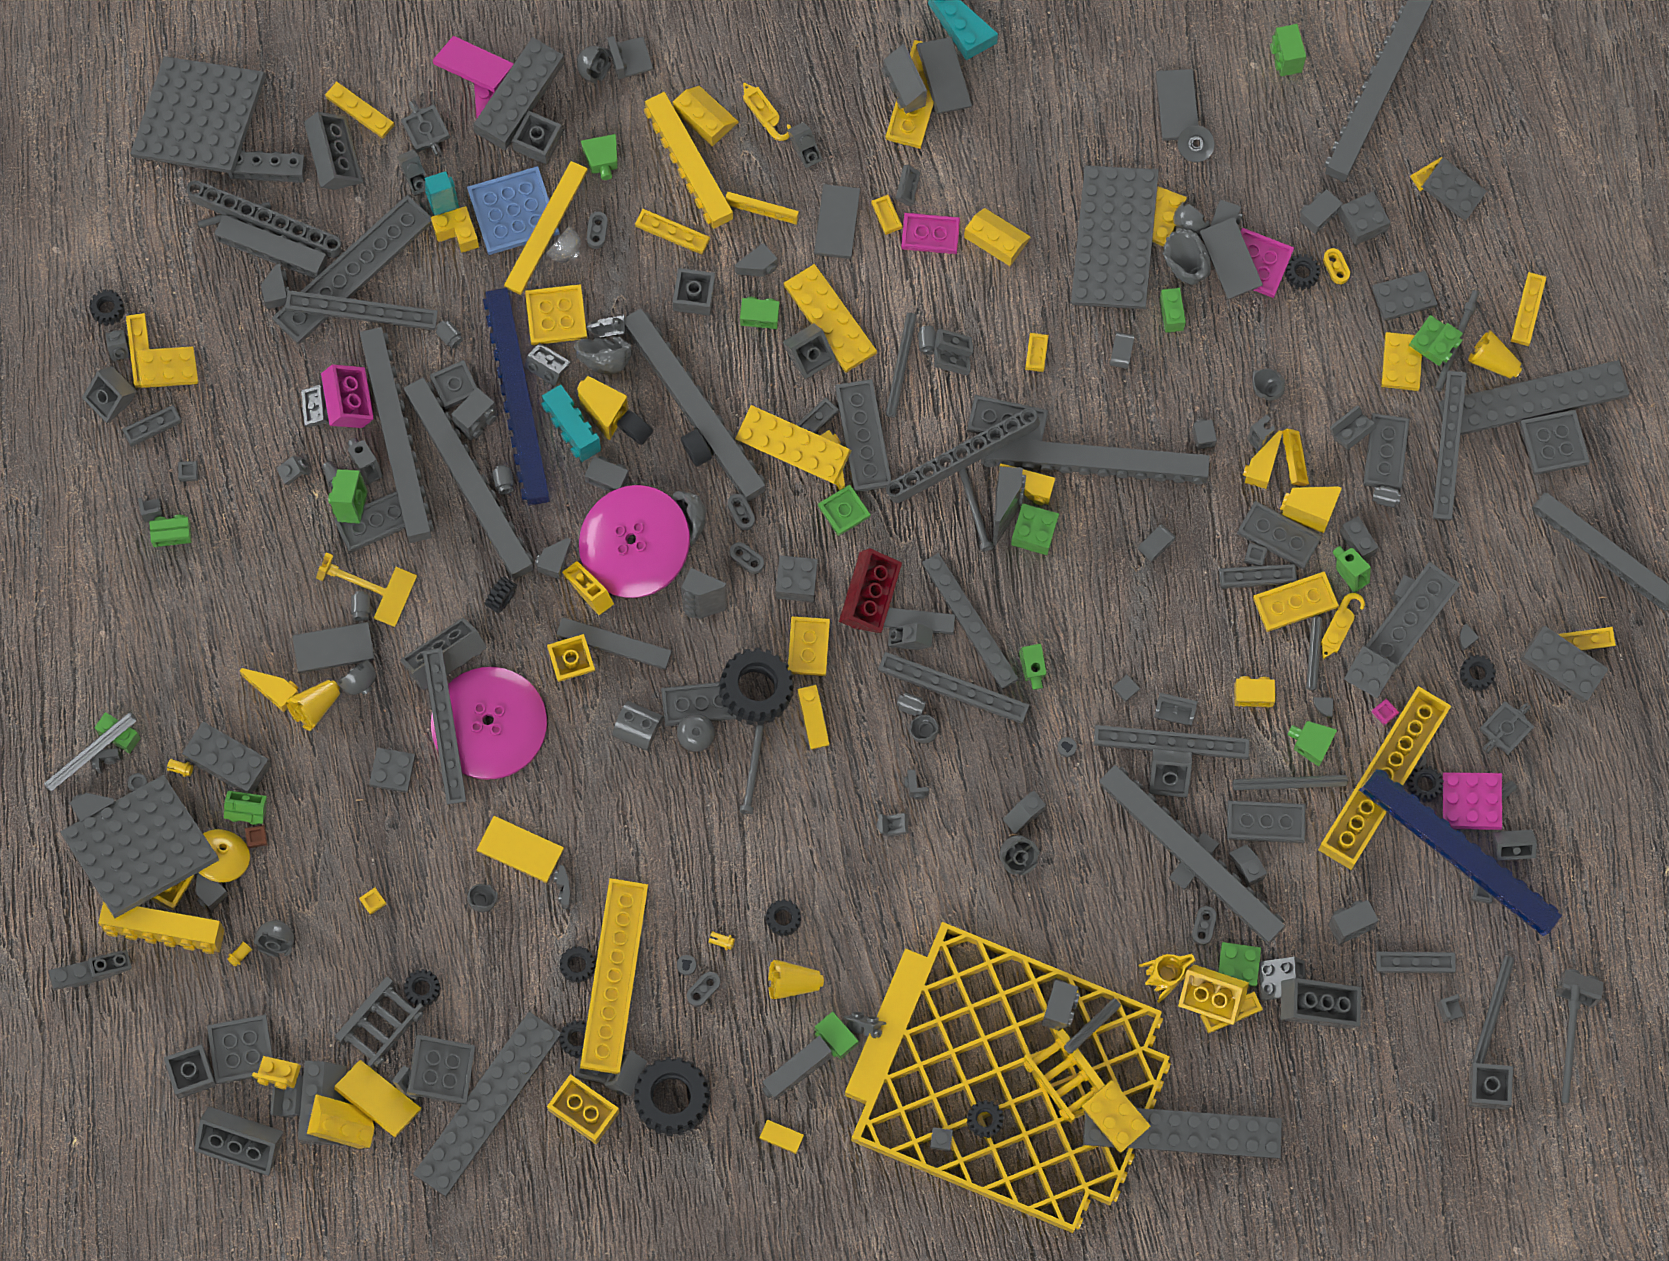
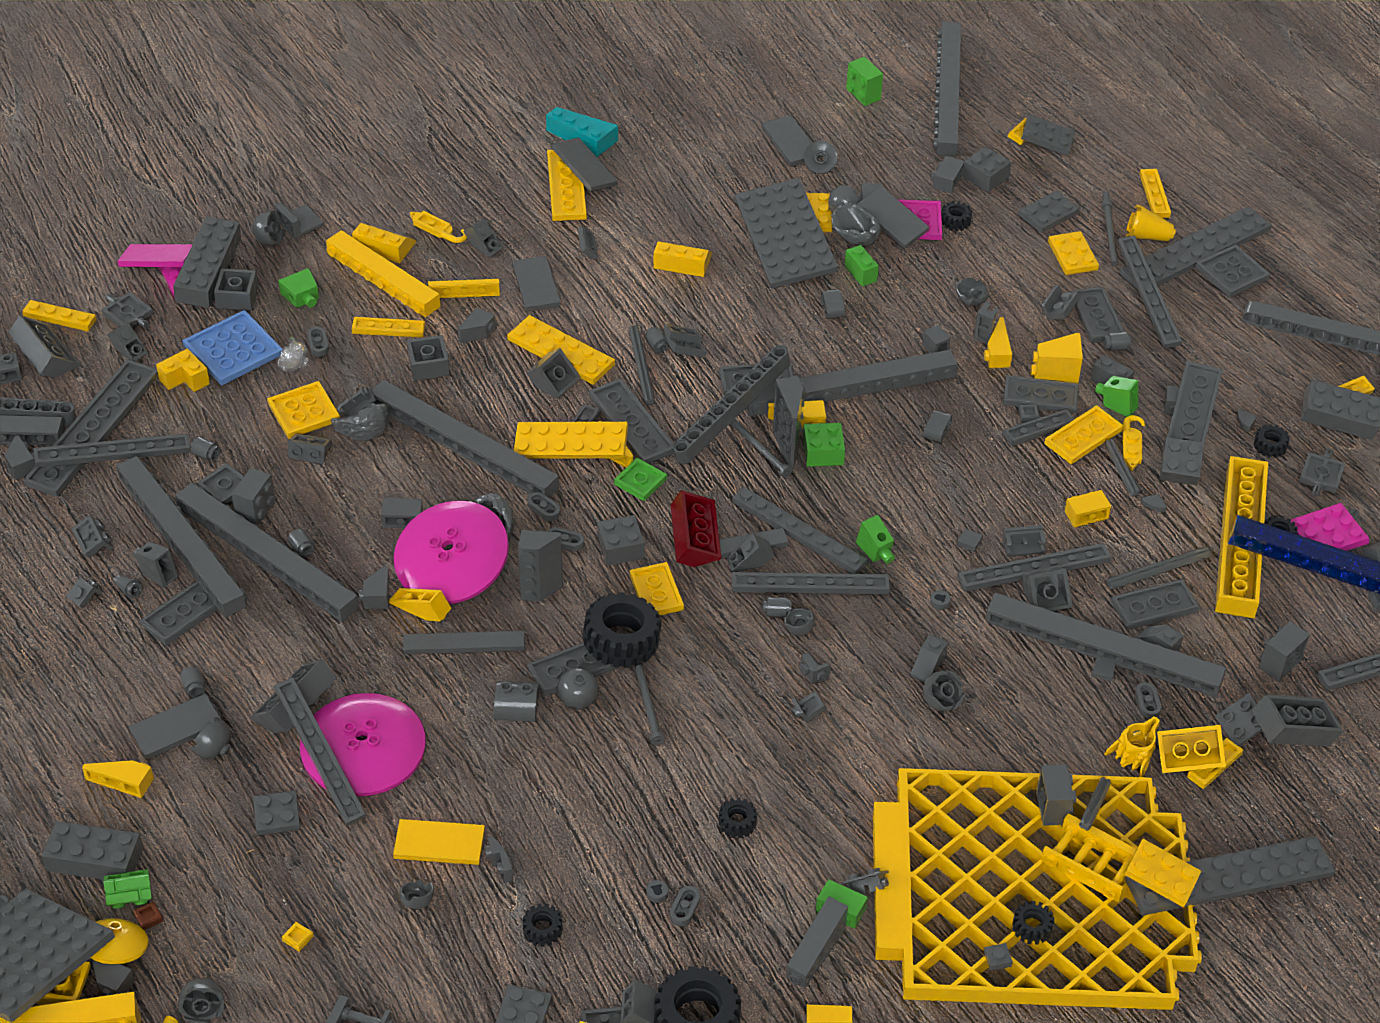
camera: 20 degrees left, 25 degrees down
(180, 767) = (43, 876): yellow pin -> none
(313, 703) = (169, 777): yellow cone -> none
(347, 396) = (120, 515): dark pink brick -> none
(348, 496) = (148, 590): bright green brick -> none
(393, 596) = (224, 666): yellow piece -> none
(419, 976) = (378, 988): black tyre -> none
(441, 193) = (159, 336): teal wedge -> none
(501, 595) = (334, 629): black tyre -> none
(517, 397) = (291, 479): clear blue brick -> none
(545, 228) = (269, 349): yellow tile -> none
(567, 1031) = (571, 982): black tyre -> none
(570, 658) = (426, 659): yellow brick -> none
(571, 423) = (352, 481): teal wedge -> none
(602, 404) = (375, 457): yellow slope -> none
(614, 976) = (587, 922): yellow plate -> none
(635, 427) = (414, 468): black tyre -> none
(696, 447) = (480, 467): black tyre -> none
(723, 941) = (684, 857): yellow pin -> none
(759, 313) = (495, 360): bright green brick -> none
(792, 980) = (770, 866): yellow cone -> none
(813, 717) = (686, 642): yellow slope -> none
(886, 214) = (578, 268): yellow tile -> none
(904, 80) = (553, 168): dark grey slope -> none
(930, 233) = (623, 271): dark pink tile -> none
(1036, 352) = (758, 324): yellow plate -> none
(1240, 962) = (1196, 716): bright green plate -> none
(1295, 457) = (1022, 335): yellow plate -> none
(1312, 740) = (1160, 529): bright green torso -> none
(1337, 267) = (982, 205): yellow plate -> none
(1385, 712) = (1209, 492): dark pink tile -> none
(1436, 340) = (1095, 228): bright green plate -> none

